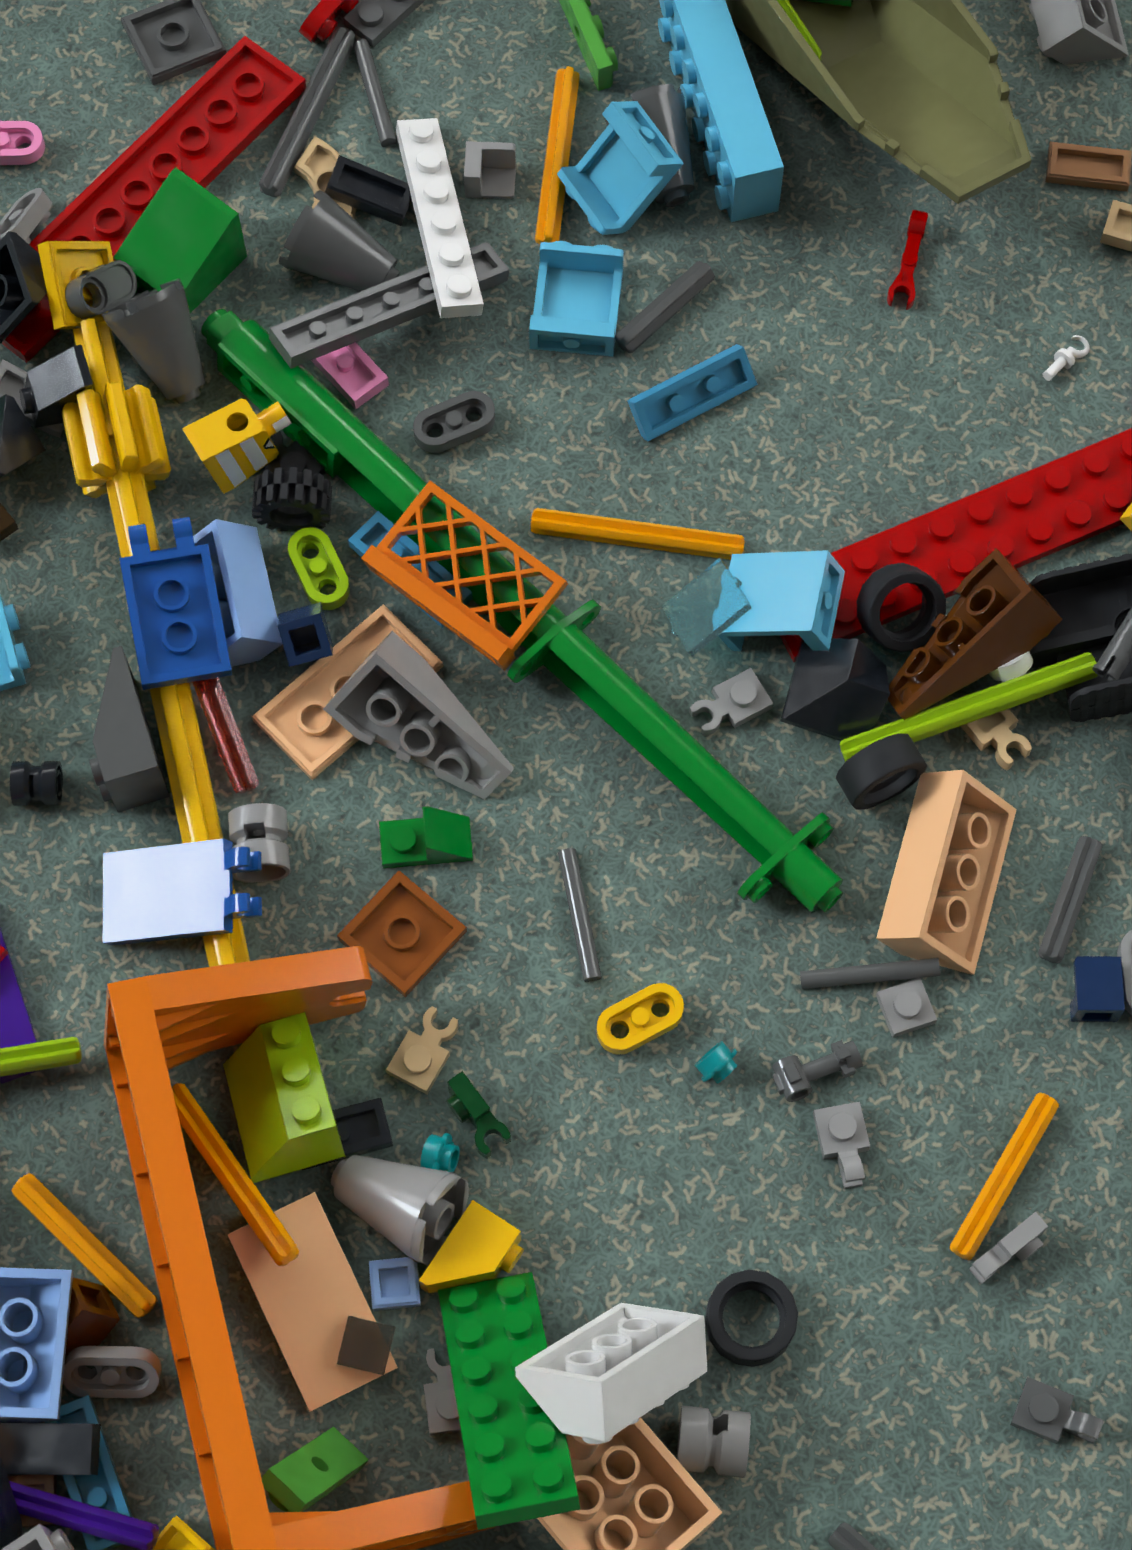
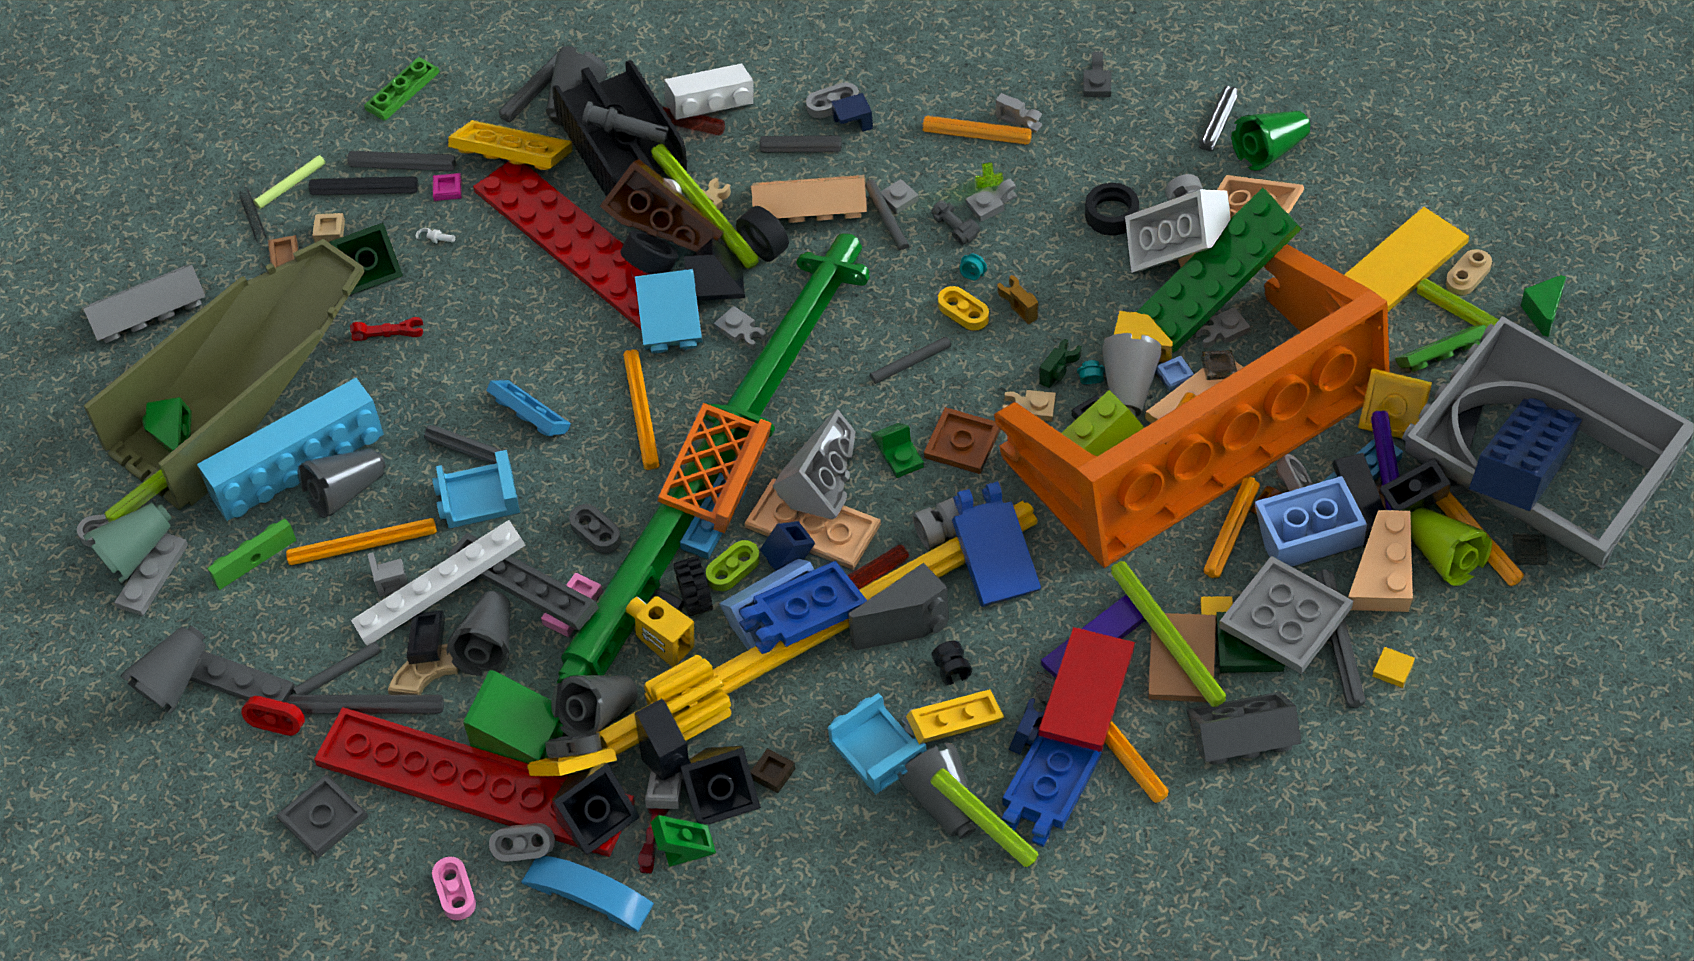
camera: 105 degrees left, 15 degrees down
(609, 1106) = (1020, 301): none -> pearl gold plate
(621, 169) = (373, 482): medium azure panel -> none
(706, 607) = (684, 348): clear light blue piece -> none
(884, 1150) = (989, 177): none -> clear neon green tile
(1040, 256) = (374, 252): none -> dark green slope

